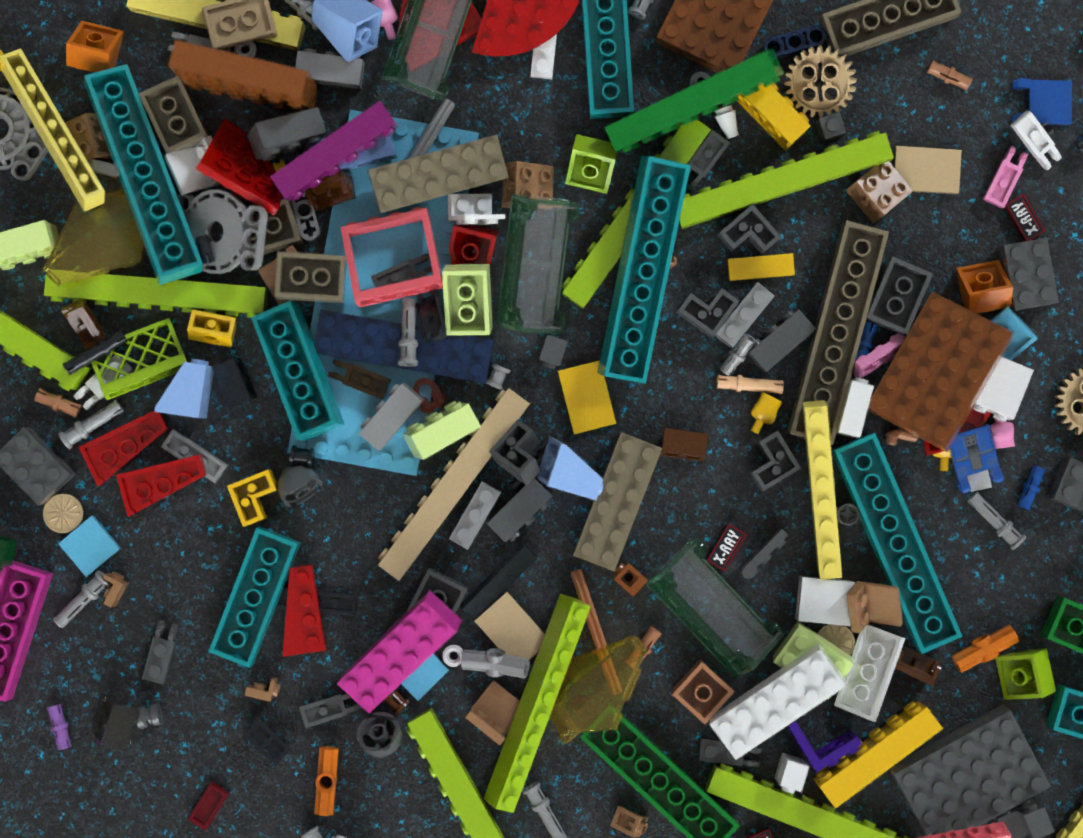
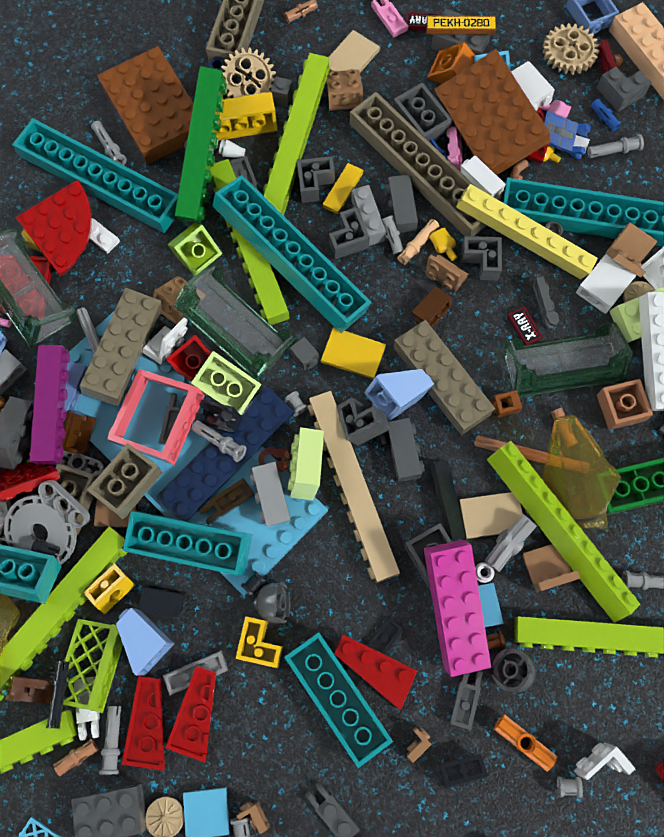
camera: 50 degrees left, 15 degrees down
(475, 515) = (386, 484): light grey brick -> none
(733, 434) = (445, 273): none -> medium nougat bracket
(1031, 270) = (460, 24): none -> tile

